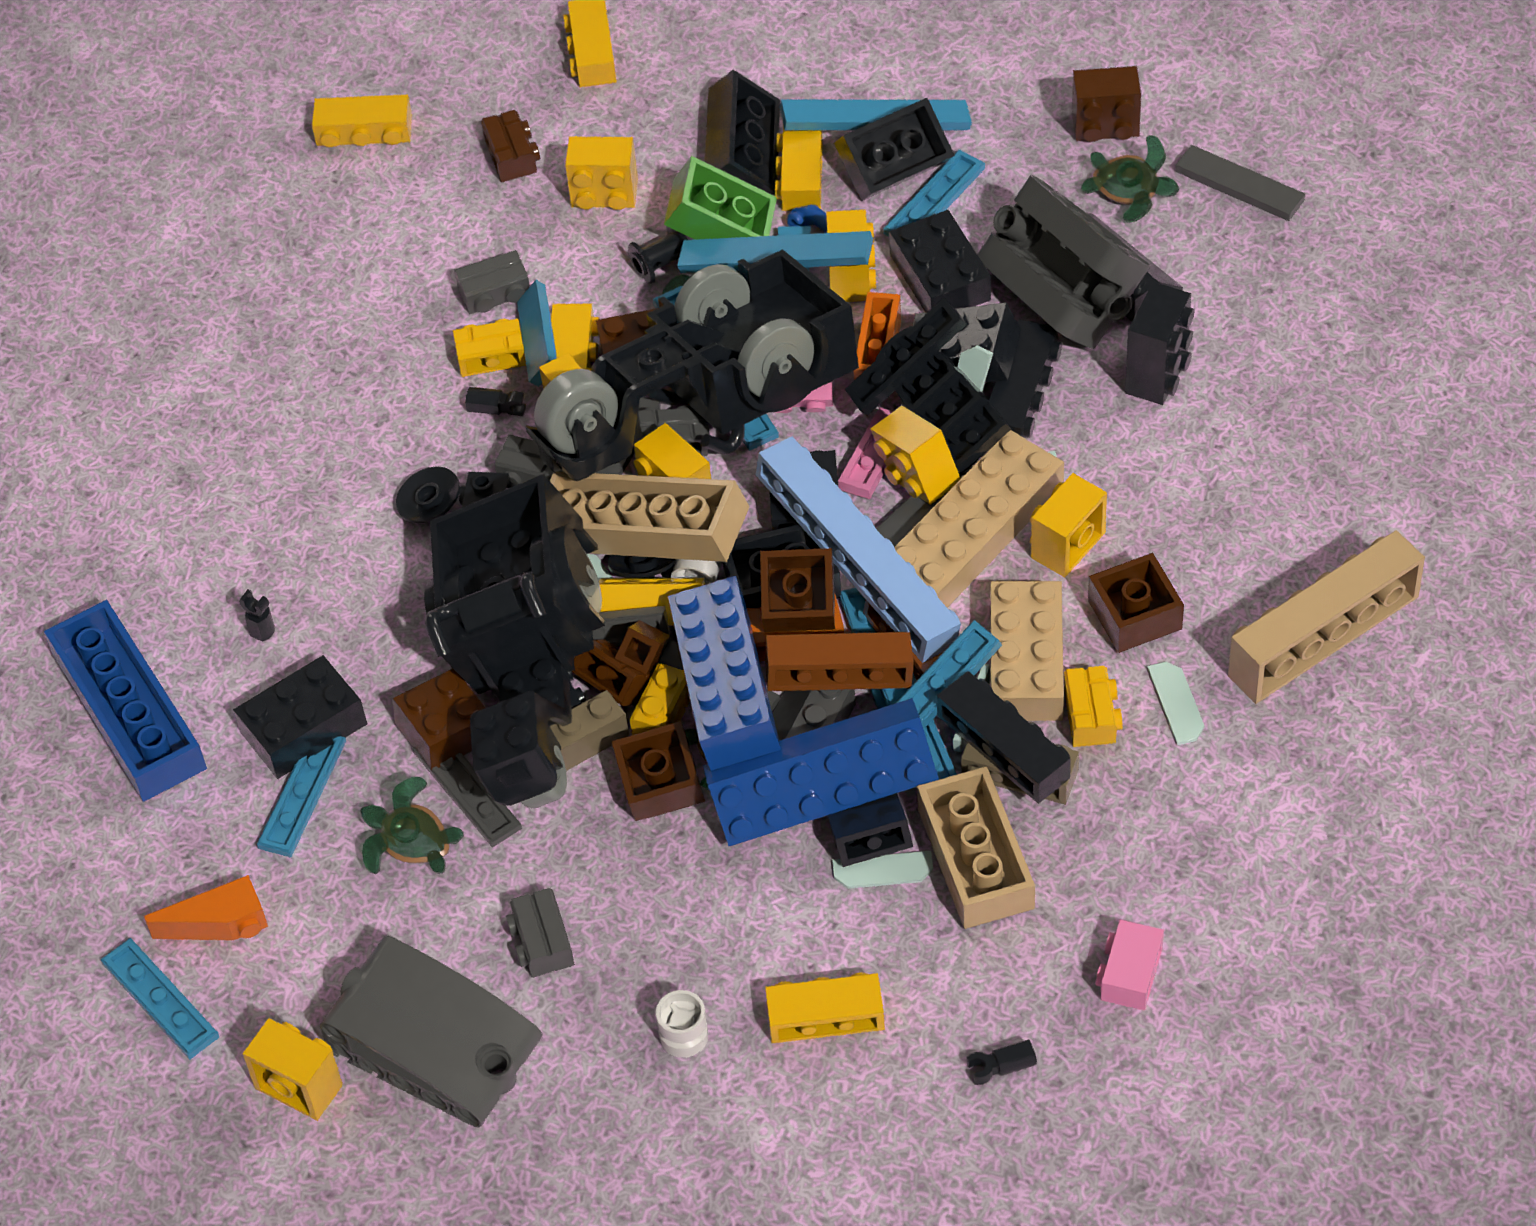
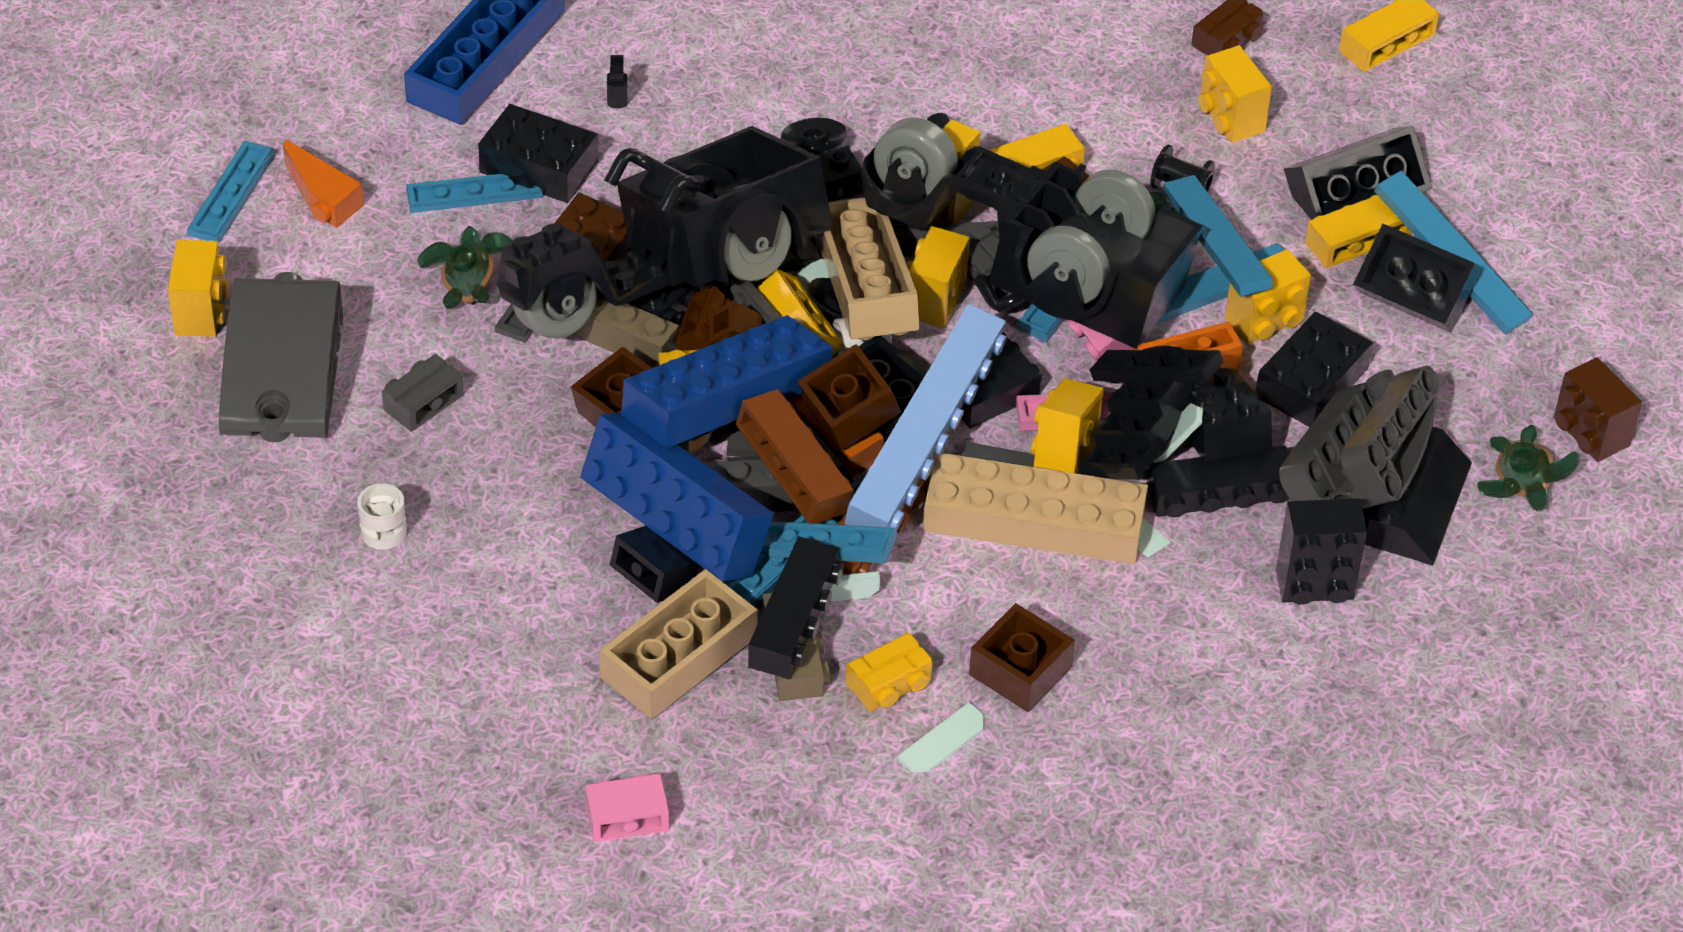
camera: 55 degrees right, 5 degrees down
(489, 347) = (998, 108): yellow brick -> none
(492, 282) = (1069, 81): dark grey brick -> none
(536, 330) = (1033, 127): dark azure tile -> none
(716, 204) = (1248, 182): bright green brick -> none
(808, 216) = (1308, 258): blue arm -> none
(825, 1007) = (457, 607): yellow brick -> none
(885, 870) = (625, 596): light aqua piece -> none
(939, 190) = (1411, 340): dark azure tile -> none
(1002, 1061) = (477, 756): black bar -> none
(1030, 661) = (919, 596): tan brick -> none
(1068, 524) = (1071, 571): yellow brick -> none
(1240, 182) = (1597, 559): dark grey tile -> none
(1325, 616) = (1098, 804): tan brick -> none

